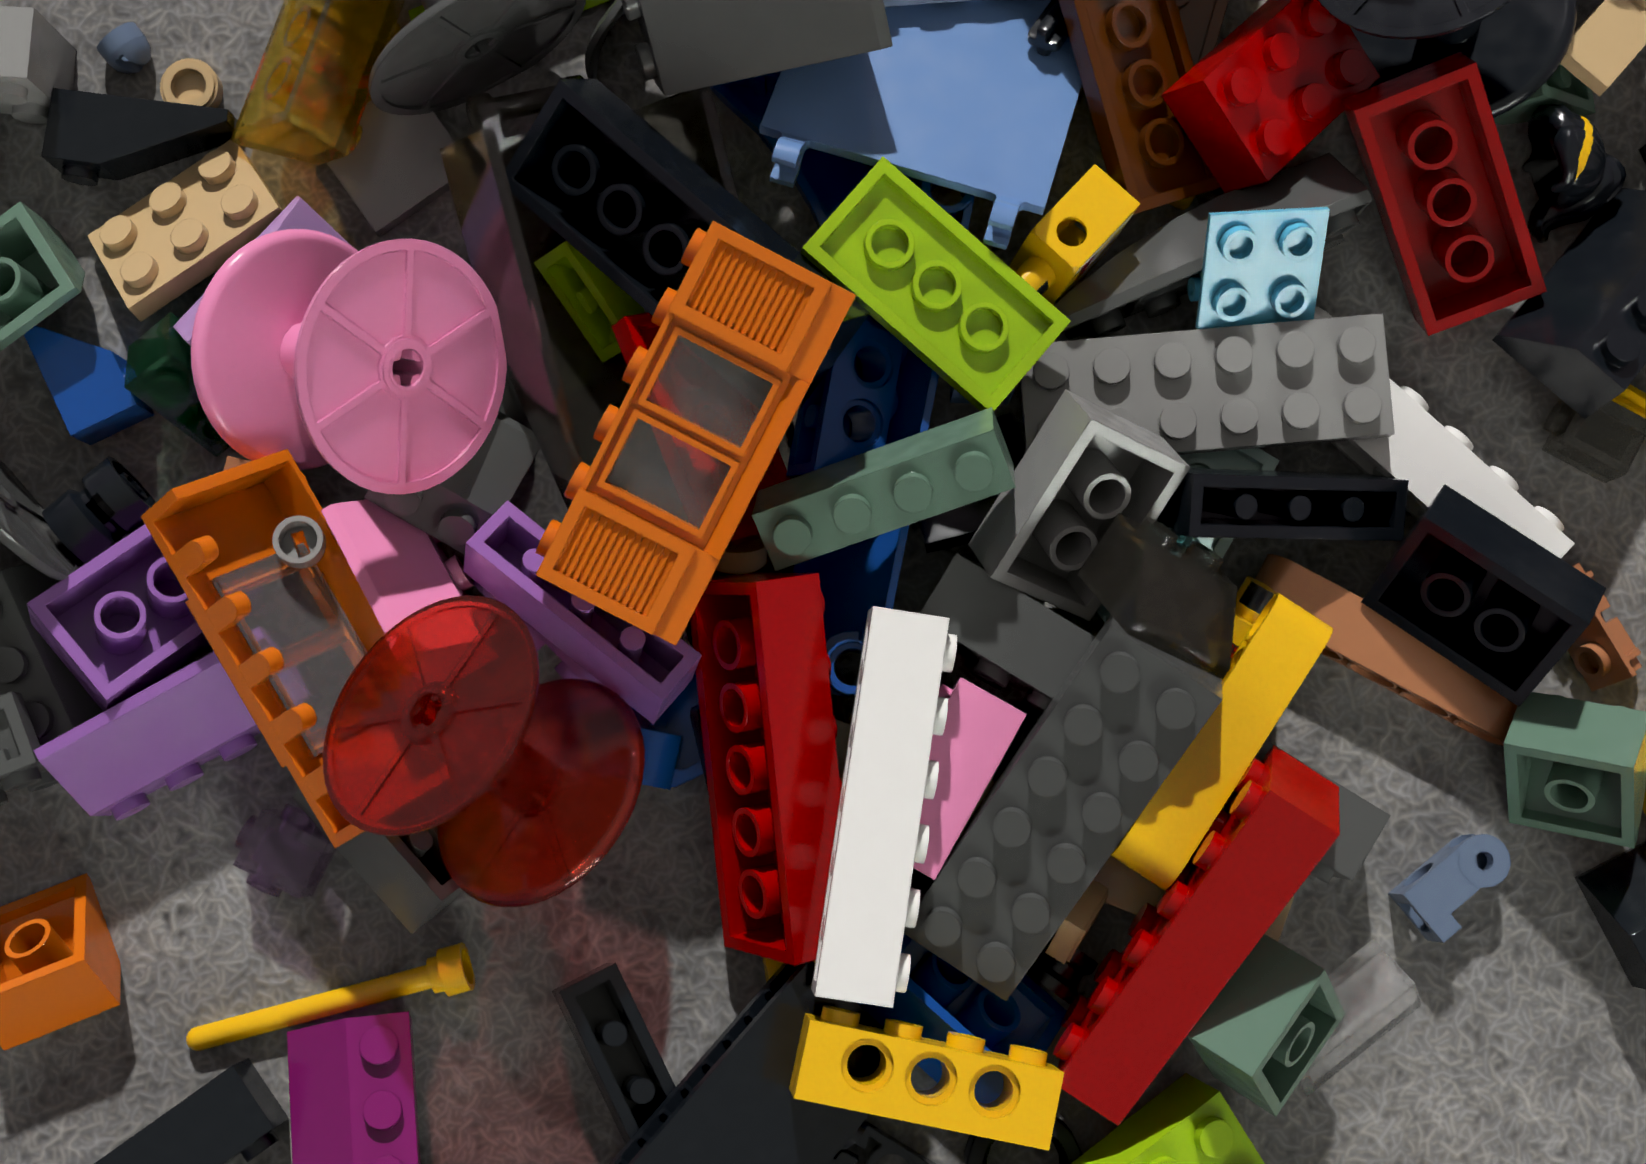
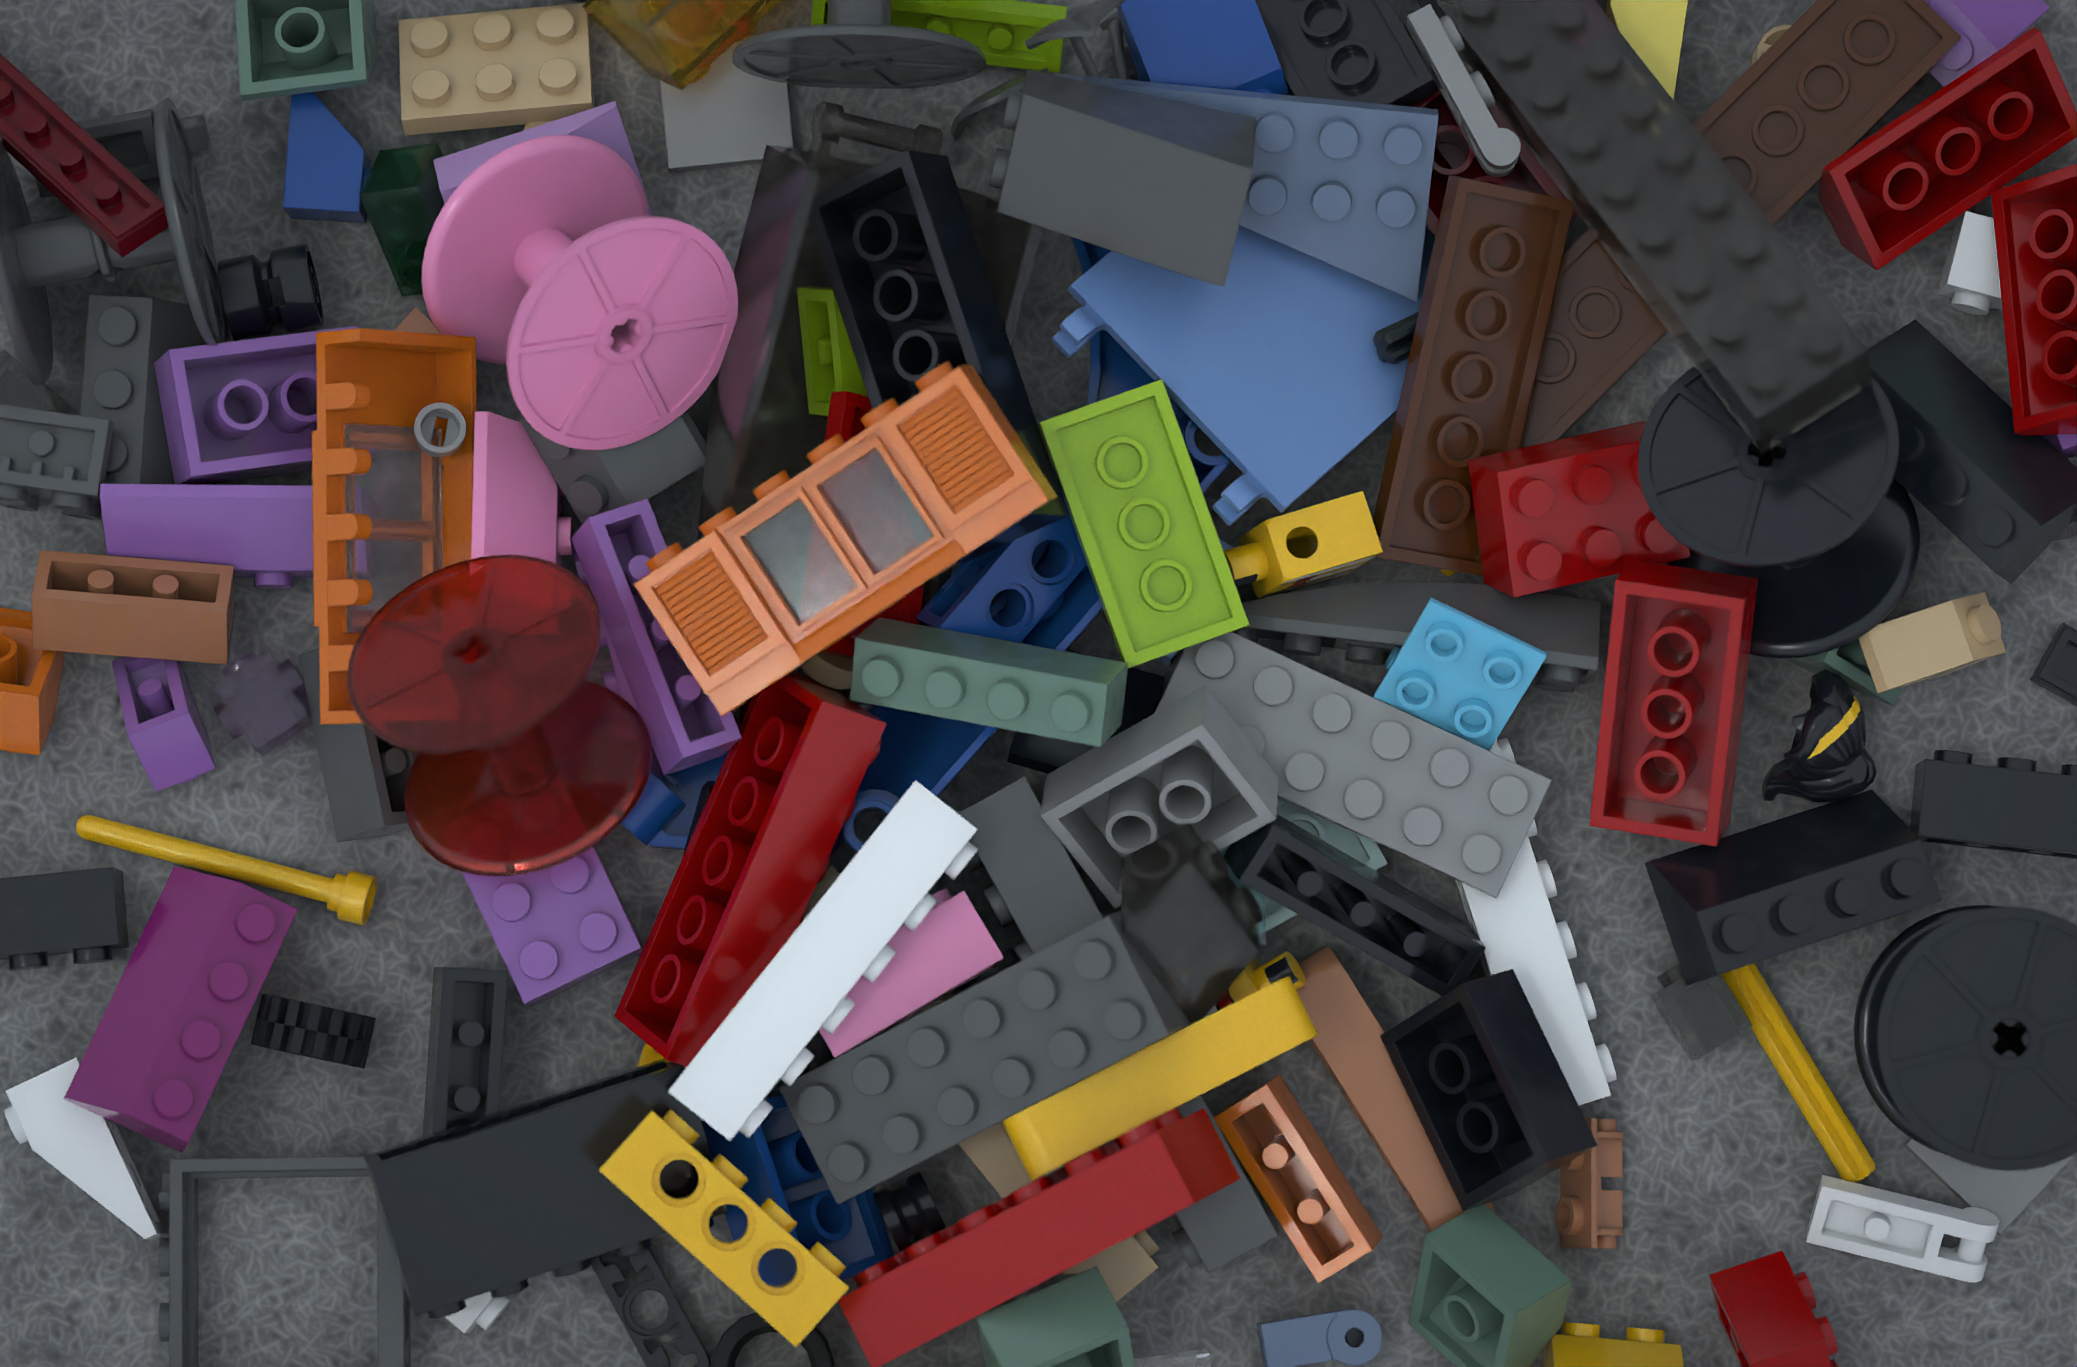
camera: 30 degrees right, 0 degrees up
(126, 837) = (133, 607): none -> nougat brick
(207, 913) = (163, 720): none -> medium lavender slope
(480, 1106) = (313, 1031): none -> black tyre
(634, 899) = (557, 924): none -> medium lavender brick
(1078, 923) = (945, 1173): tan tile -> none
(1367, 759) = (1298, 1178): none -> orange brick

